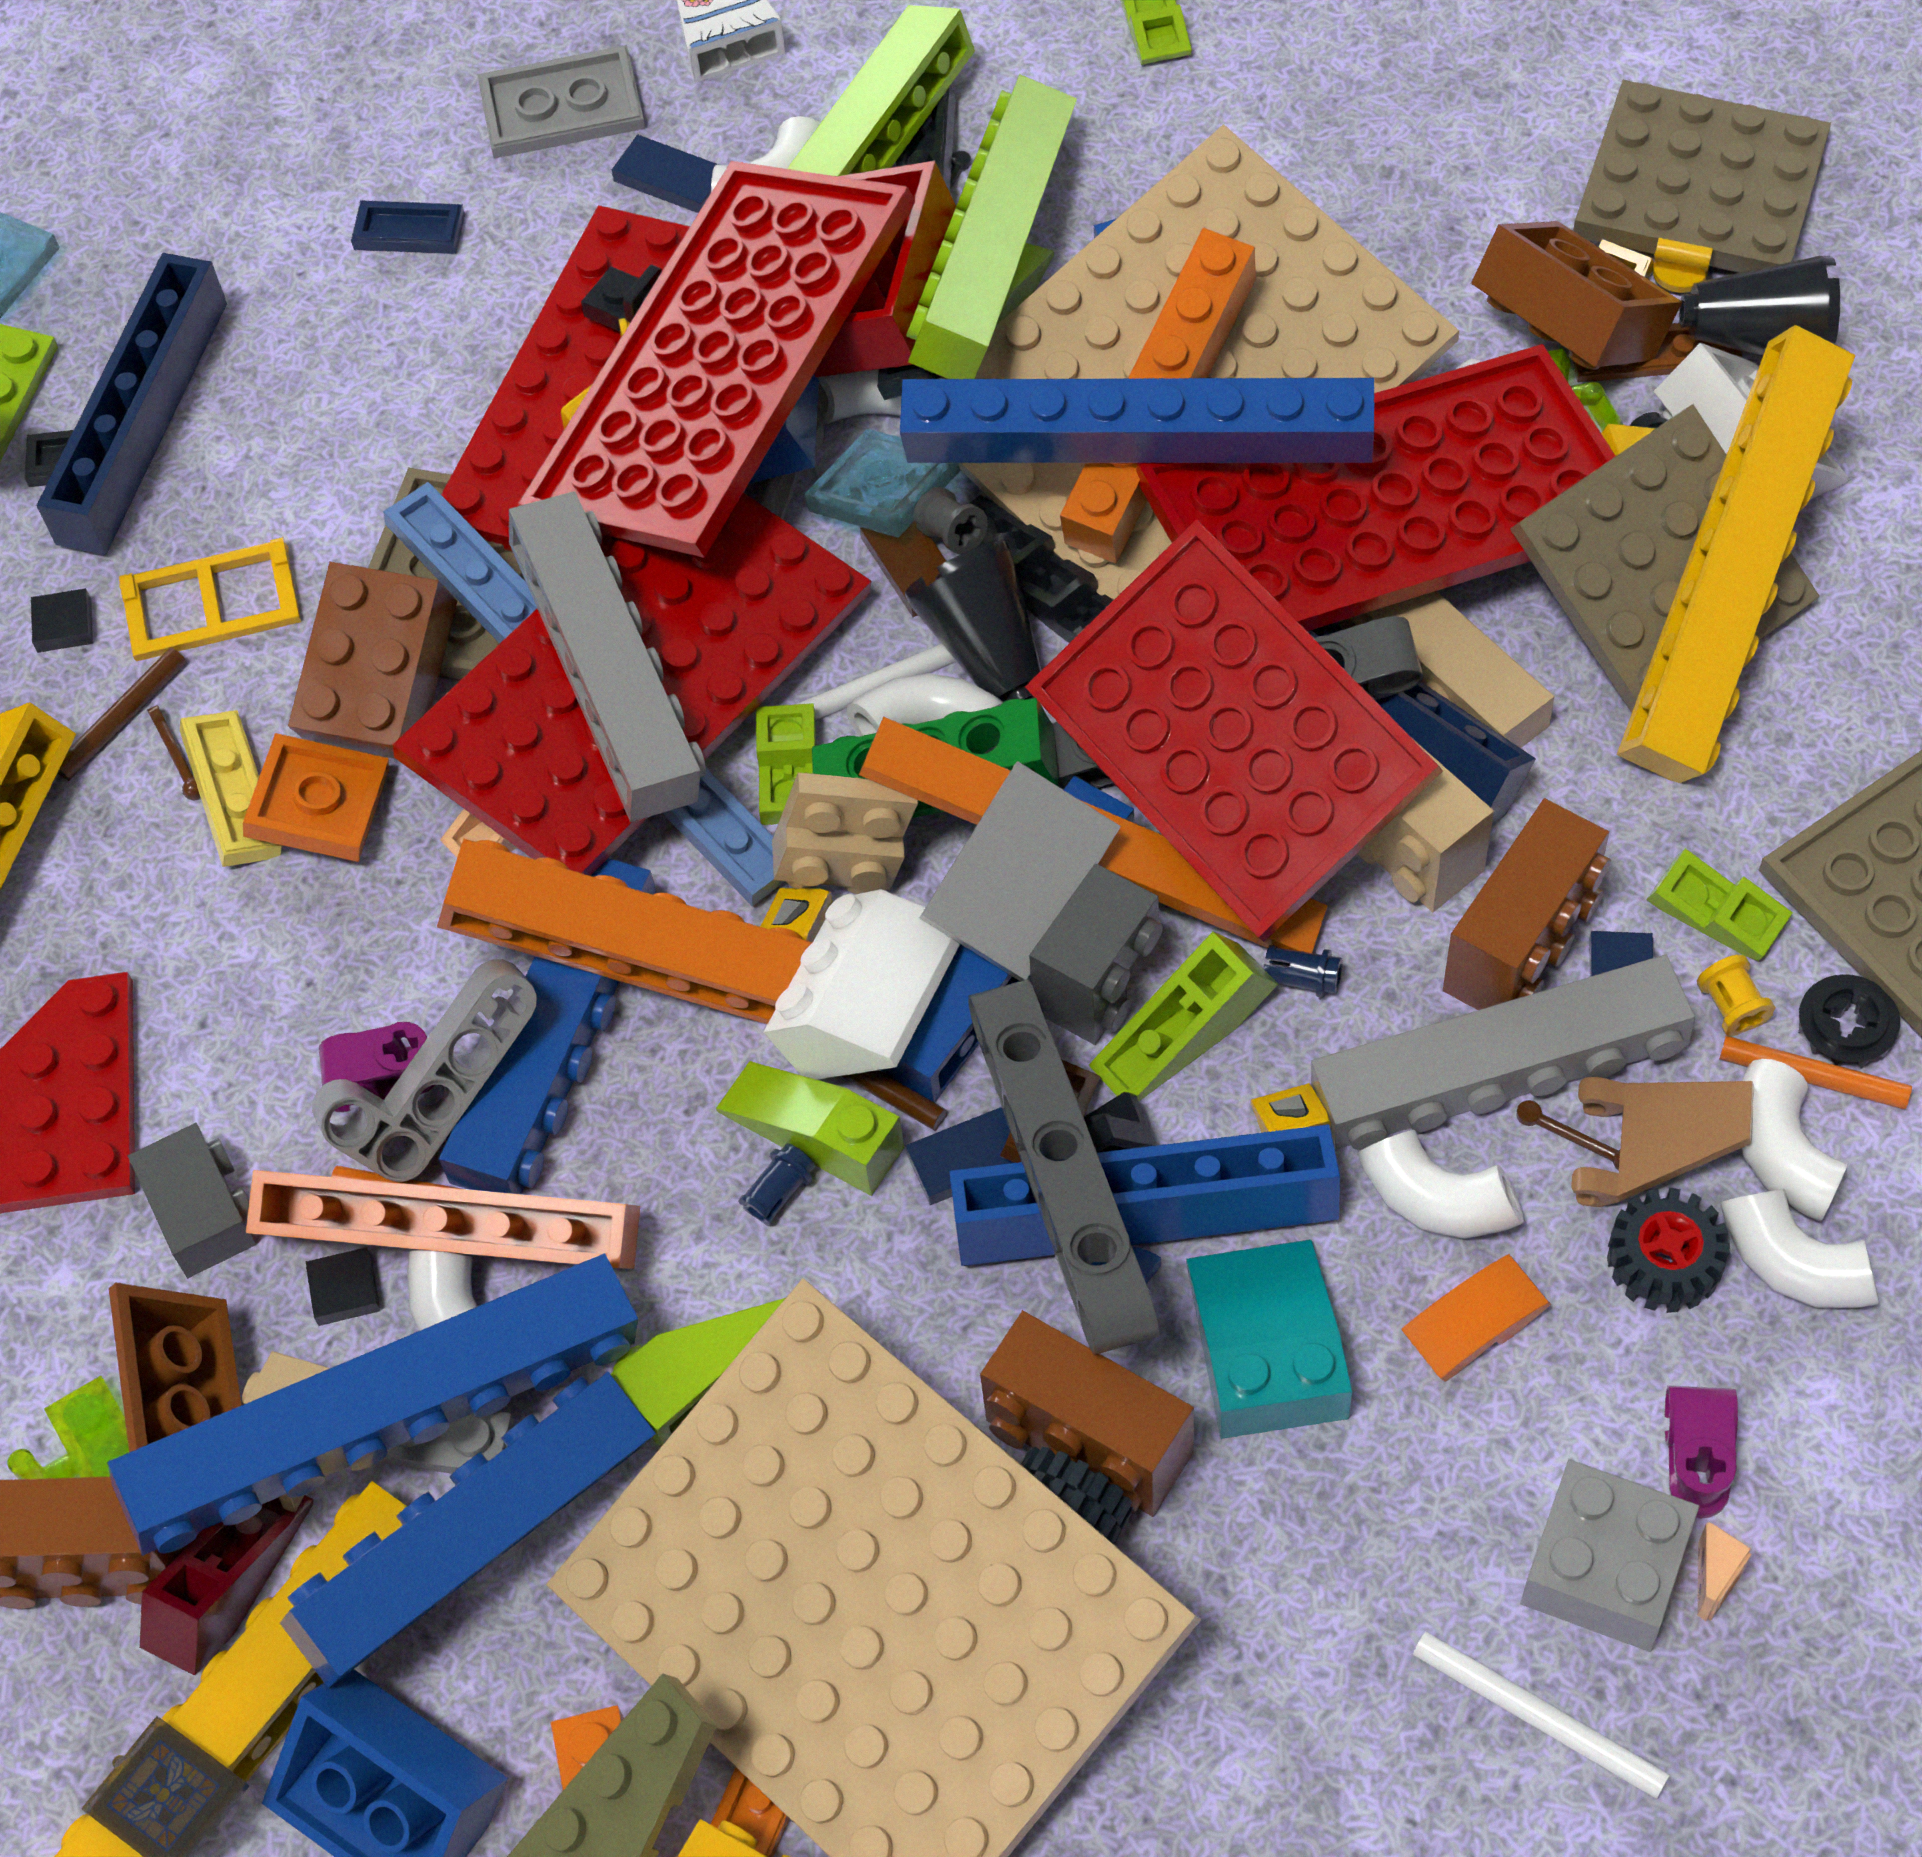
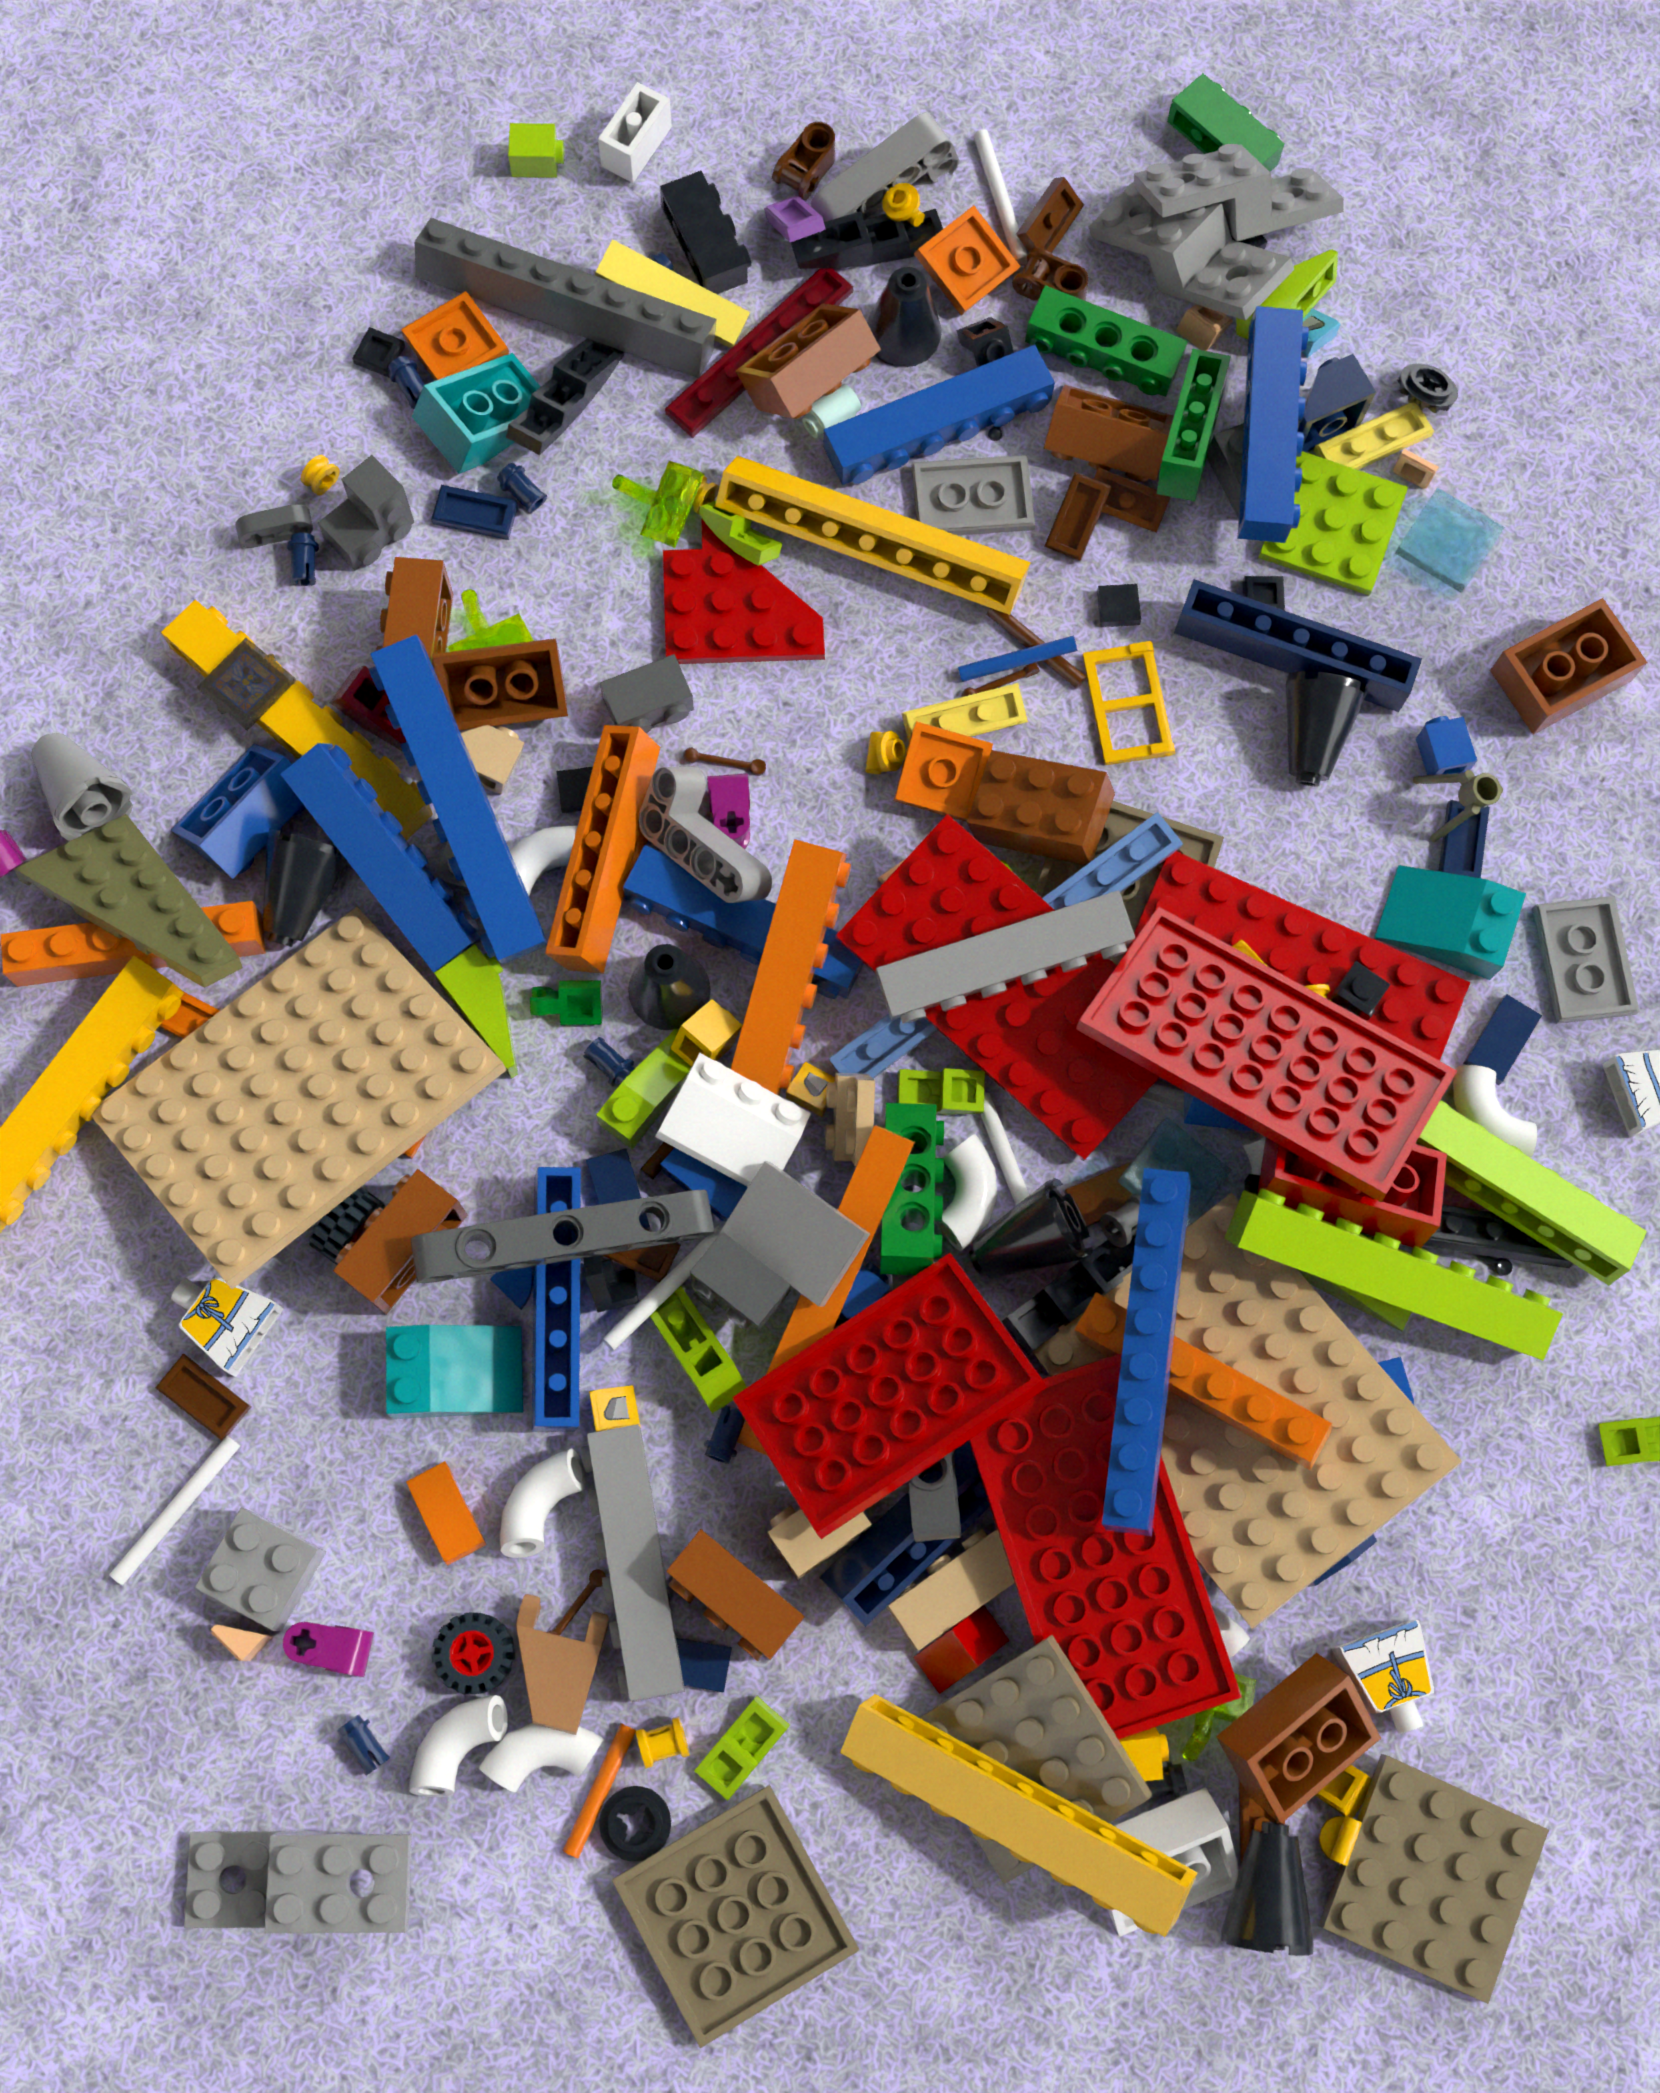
camera: 85 degrees right, 15 degrees up
(141, 727) = (1017, 658): none -> blue bar
(171, 122) = (1568, 666): none -> dark orange brick
(246, 370) = (1319, 722): none -> black cone
(280, 244) = (1446, 746): none -> blue brick
(282, 883) = (885, 752): none -> yellow plate
(304, 1049) = (756, 767): none -> reddish brown hinge
(351, 187) = (1474, 794): none -> olive plant
(513, 1669) = (296, 884): none -> black cone
(515, 224) = (1451, 919): none -> teal slope
(654, 1112) = (668, 987): none -> black cone
(690, 1240) = (576, 1002): none -> green plate
(730, 1050) = (706, 1032): none -> yellow brick
(1127, 1077) = (658, 1294): none -> white bar
(1238, 1675) = (225, 1320): none -> torso
(1360, 1700) = (203, 1397): none -> reddish brown tile
(1459, 221) = (1389, 1672): none -> torso
(1554, 662) = (961, 1649): none -> red slope
(1815, 1392) = (359, 1741): none -> dark blue pin

